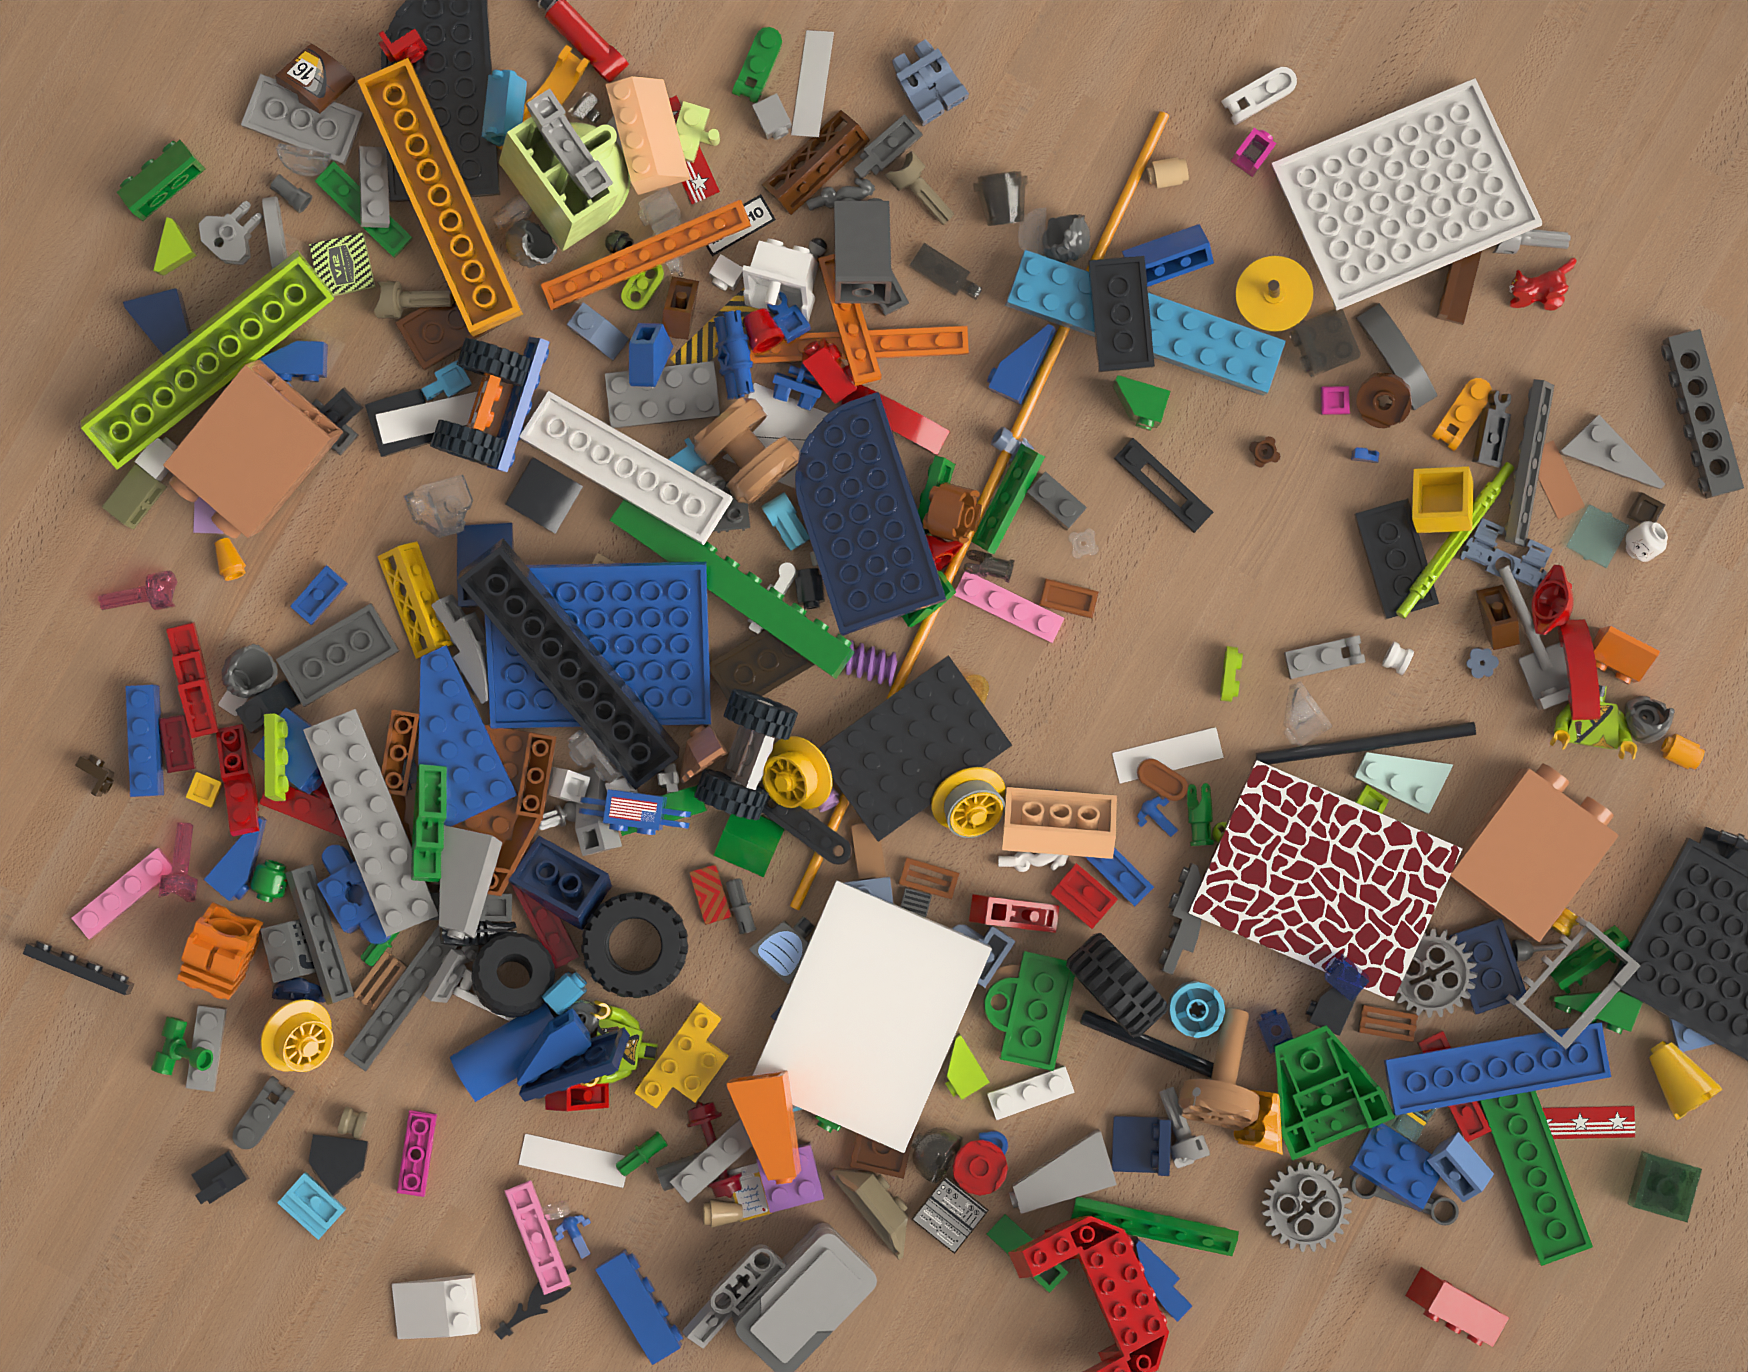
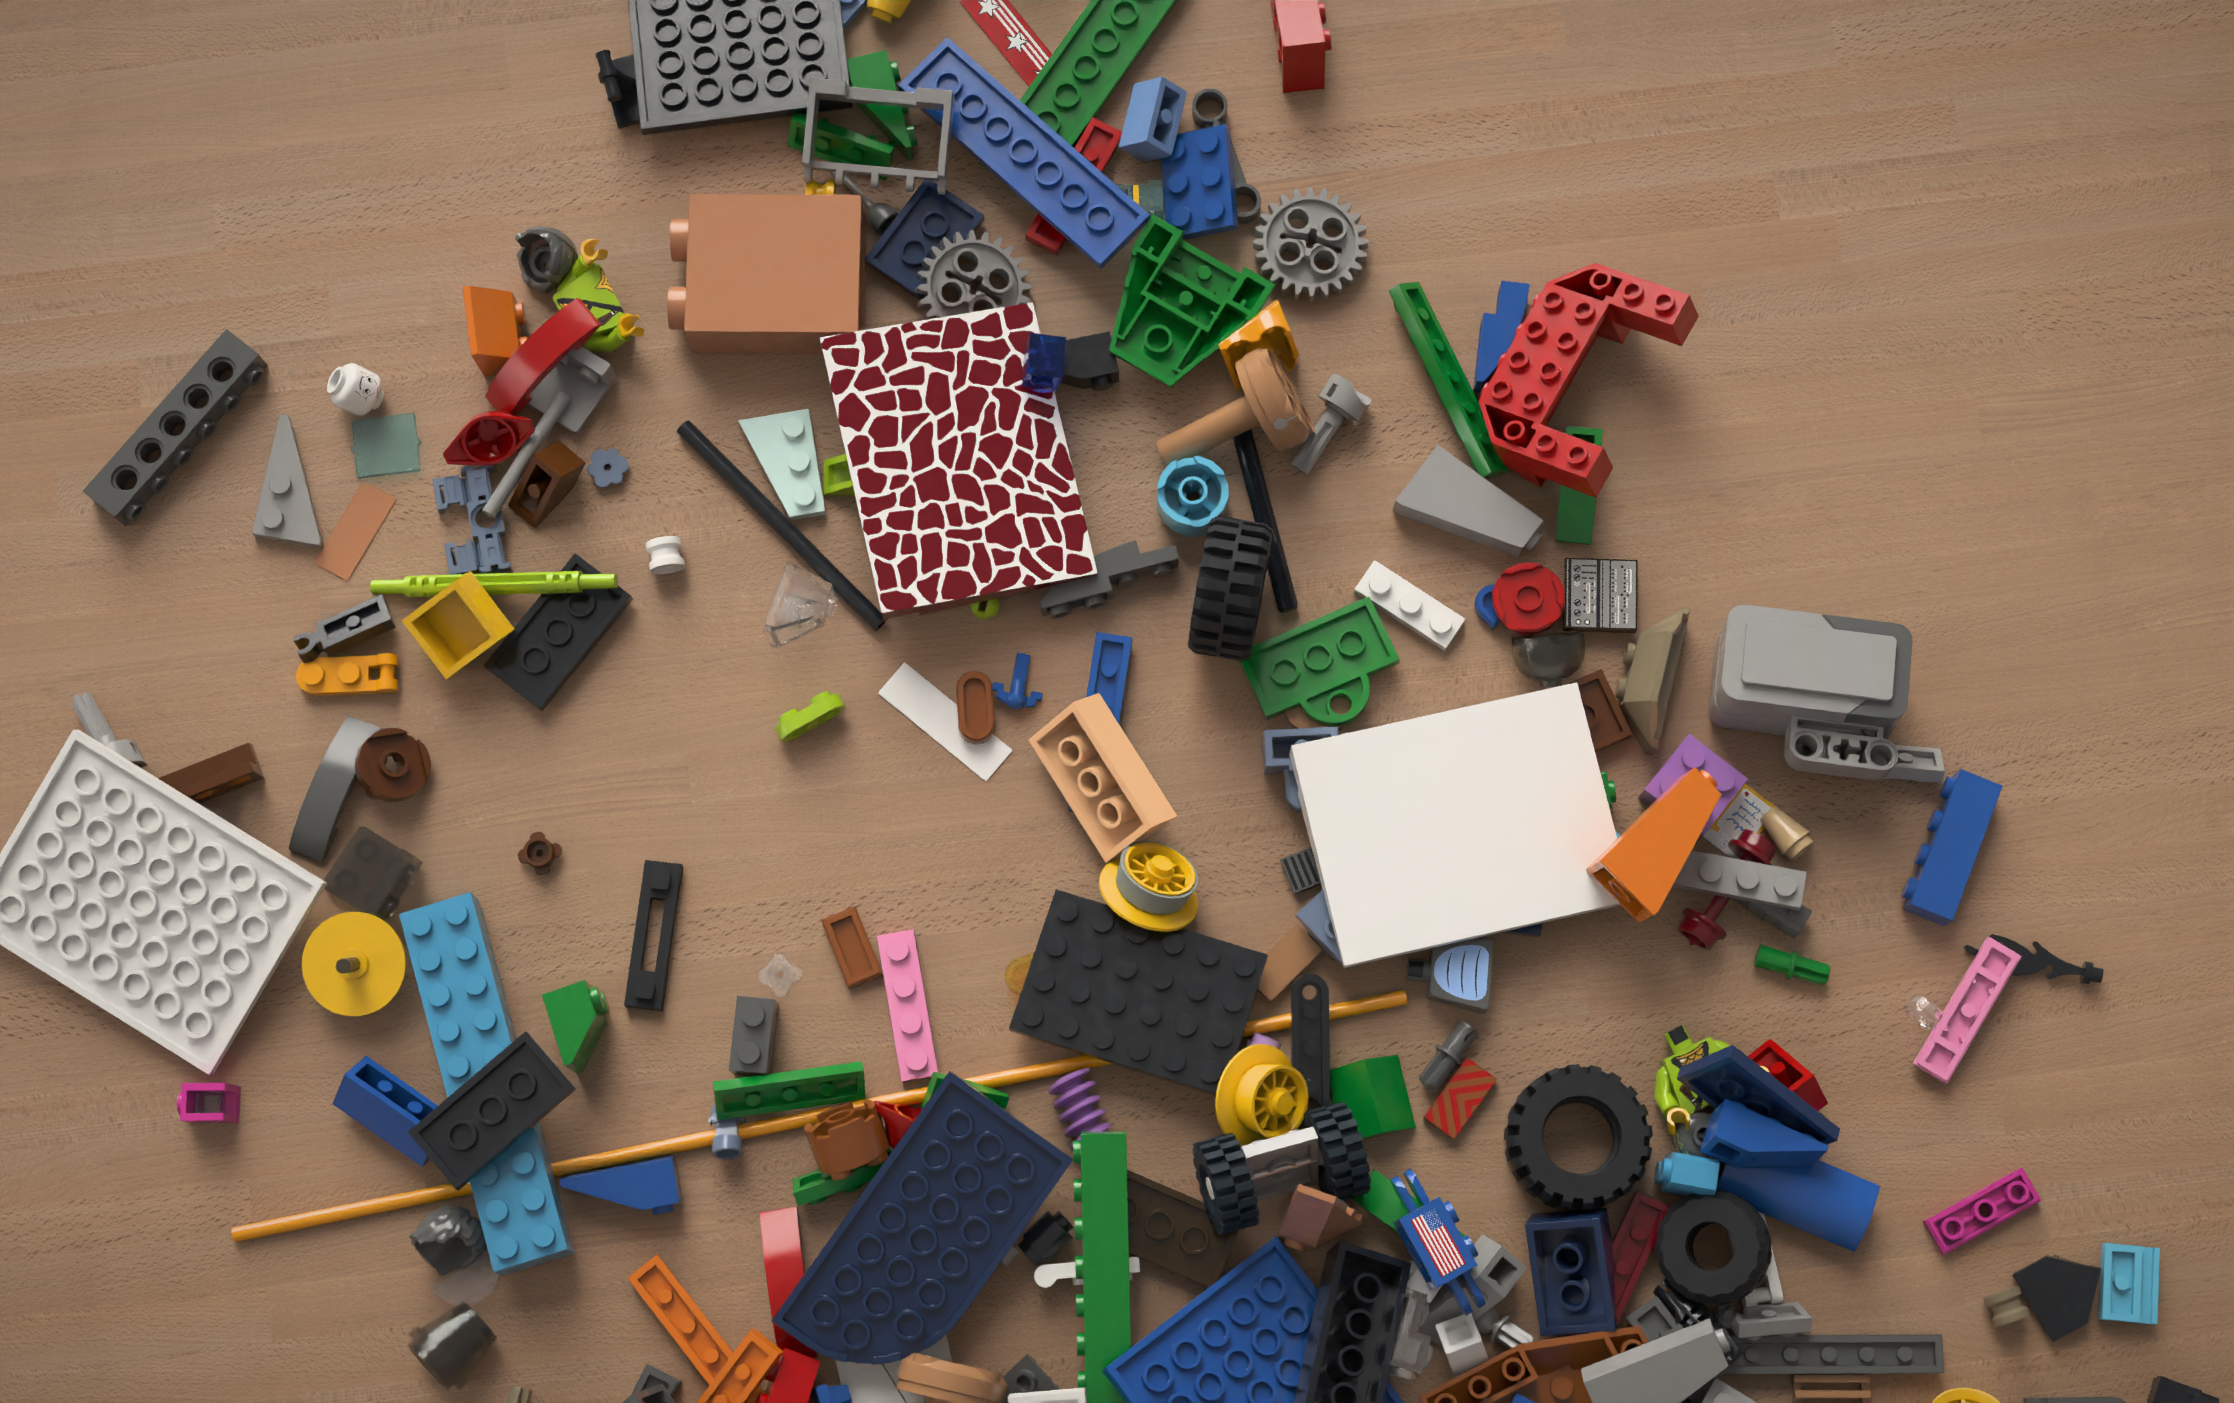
camera: 125 degrees left, 10 degrees down
(436, 1307) = (2125, 1063): white slope -> none
(570, 1224) = (1925, 985): piece -> none
(571, 1160) = (1856, 1037): white sticker -> none
(669, 778) = (1370, 1235): light grey plate -> none
(687, 1061) = (1657, 988): yellow piece -> none
(783, 516) = (987, 1327): medium azure piece -> none
(944, 272) = (584, 1350): clear smoke plate -> none
(951, 885) = (1253, 846): dark orange tile -> none
(964, 1071) = (1441, 686): lime slope -> none
(989, 565) = (877, 1057): clear smoke piece -> none
(1014, 913) = (1235, 759): red slope -> none
(1022, 860) = (1173, 789): white animal -> none
(1084, 896) = (1160, 698): red plate -> none
(1141, 1144) = (1374, 451): dark blue bracket -> none
(1168, 172) = (297, 1180): tan brick -> none
(1200, 815) = (985, 638): green piece -> none
(1261, 93) = (137, 1143): white plate -> none
(1265, 1024) = (1149, 415): clear blue brick -> none
(1323, 657) = (720, 633): light grey plate -> none
(1335, 400) = (430, 819): dark pink tile -> none
(1364, 455) = (468, 745): blue tile -> none
(1410, 1027) = (1046, 271): dark orange tile -> none
(1529, 464) = (342, 574): dark grey plate -> none
(1546, 288) = (150, 682): red animal -> none
(1645, 509) = (322, 416): dark brown tile -> none
(1682, 751) = (555, 201): light orange brick -> none

